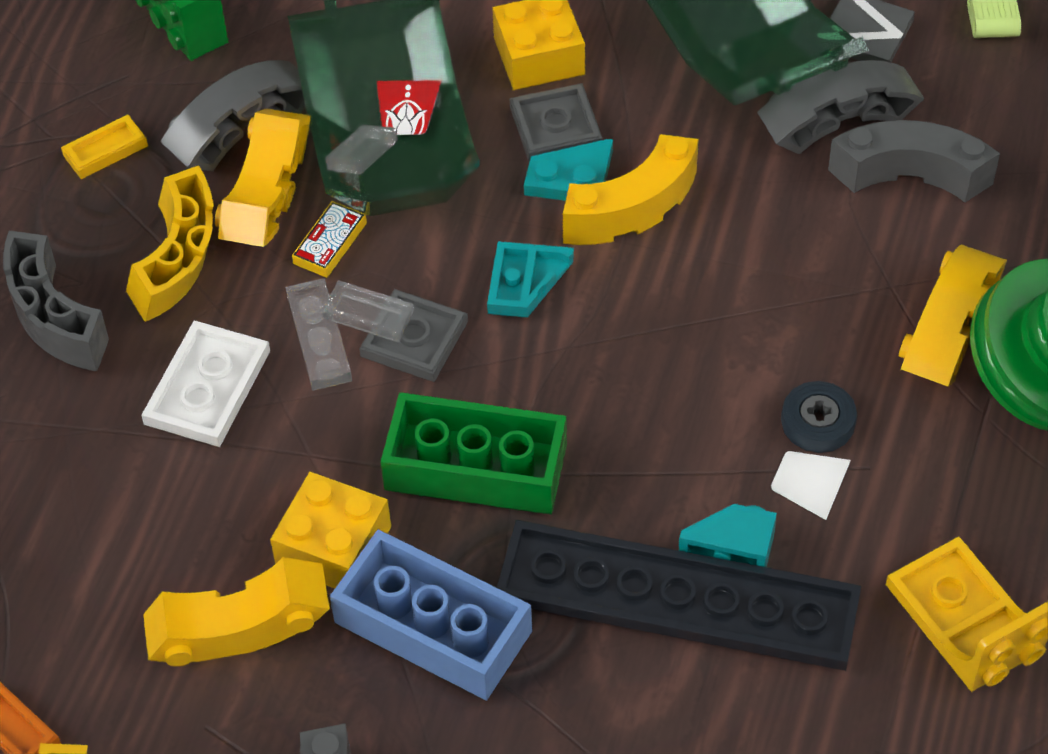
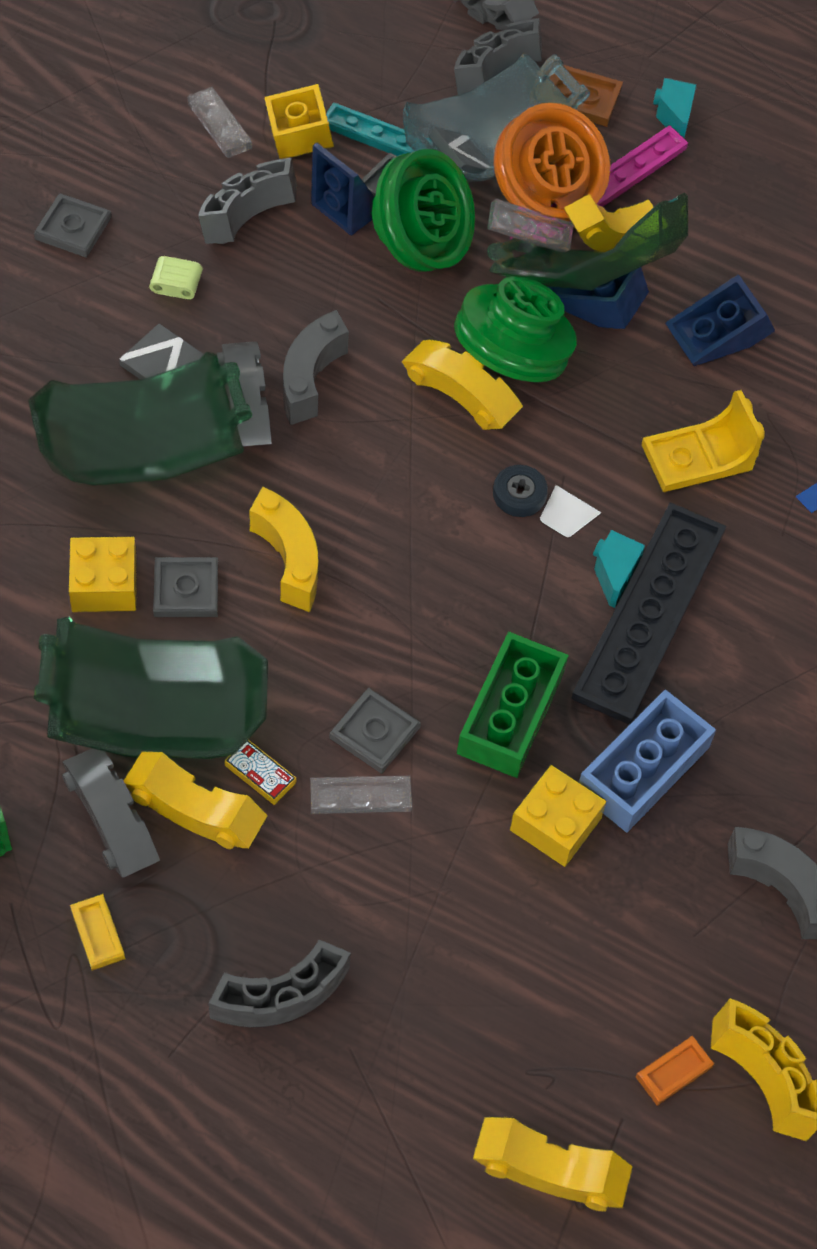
camera: 85 degrees left, 5 degrees up
(174, 266) = (247, 874): yellow brick -> none
(206, 383) = (388, 884): white plate -> none
(209, 627) = (619, 893): yellow brick -> none
(361, 149) = (188, 722): clear tile -> none
(368, 311) = (357, 750): clear tile -> none
(407, 104) = (143, 683): red sticker -> none
(525, 276) = (344, 642): teal wing -> none
(553, 171) = (244, 588): teal wing -> none

